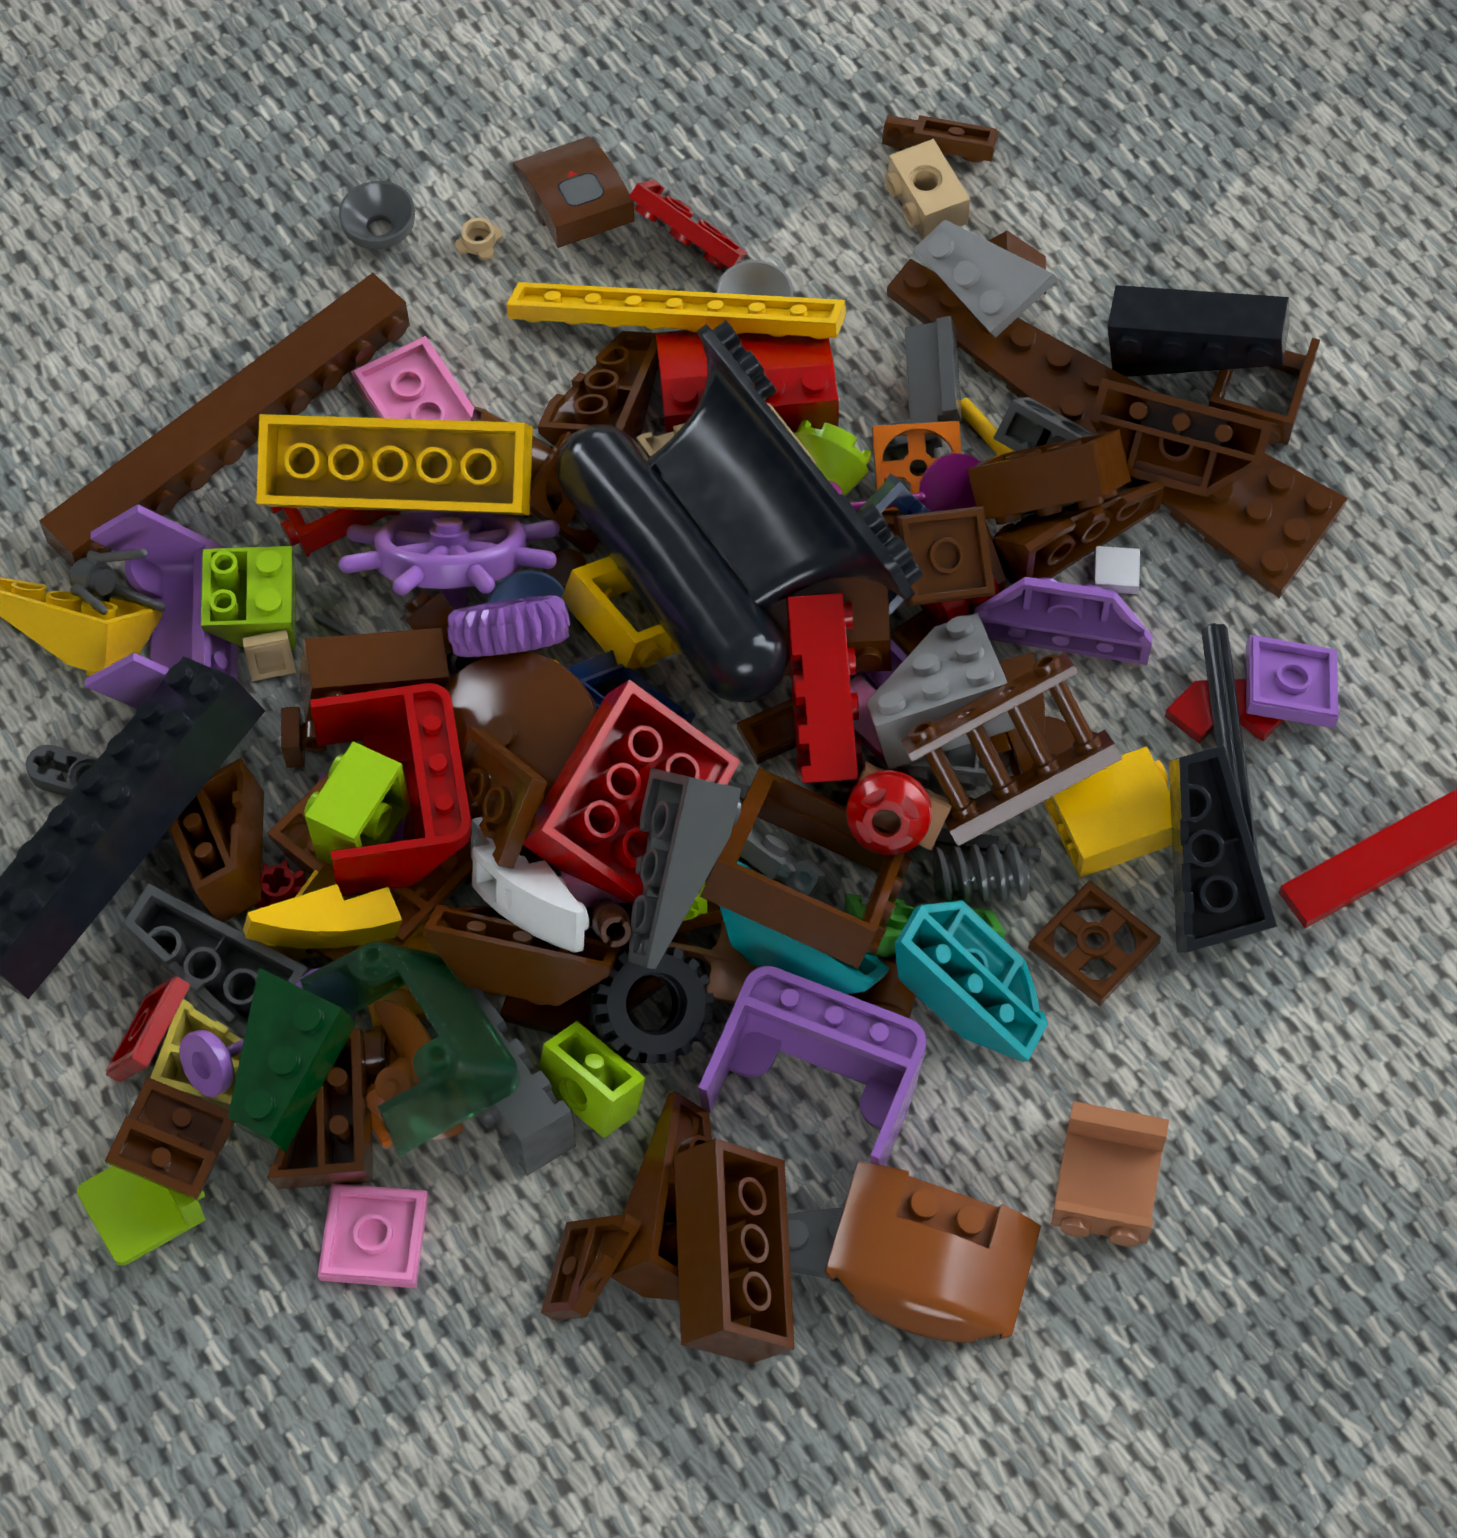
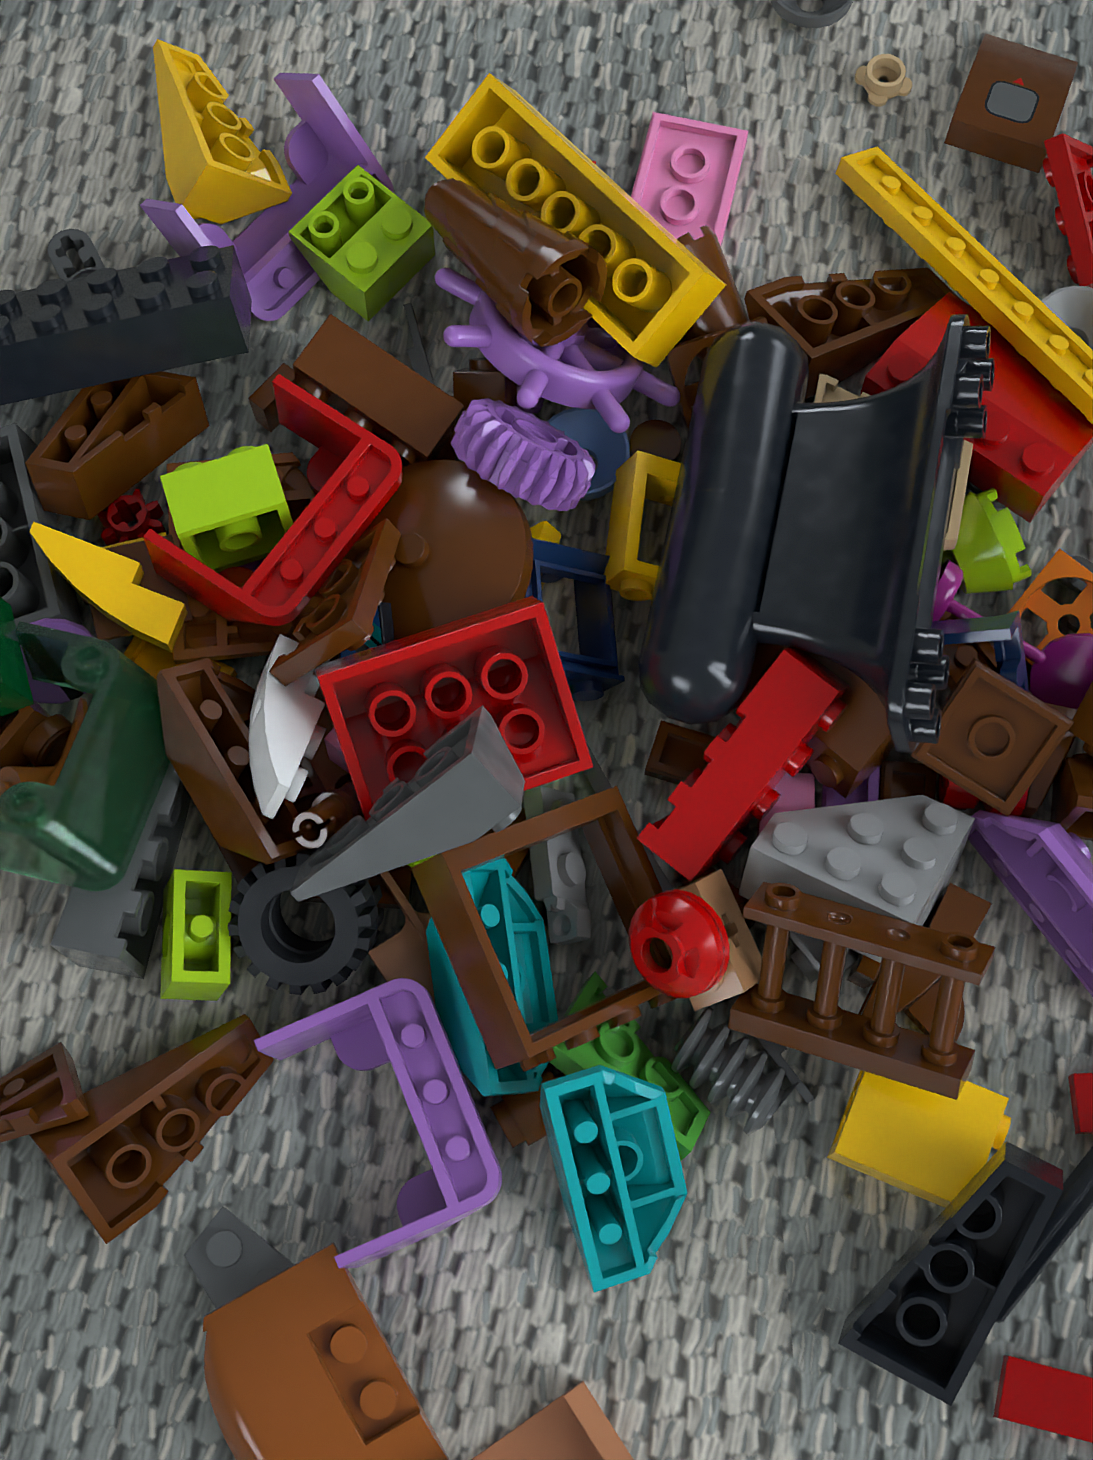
camera: 45 degrees right, 10 degrees up
(94, 578) = (261, 122): dark grey plant -> none
(227, 419) = (547, 69): reddish brown brick -> none
(269, 655) = (327, 298): tan tile -> none
(395, 510) = (518, 260): none -> reddish brown cone
(733, 1252) = (139, 1222): reddish brown brick -> none
(1093, 897) = (751, 1236): reddish brown piece -> none

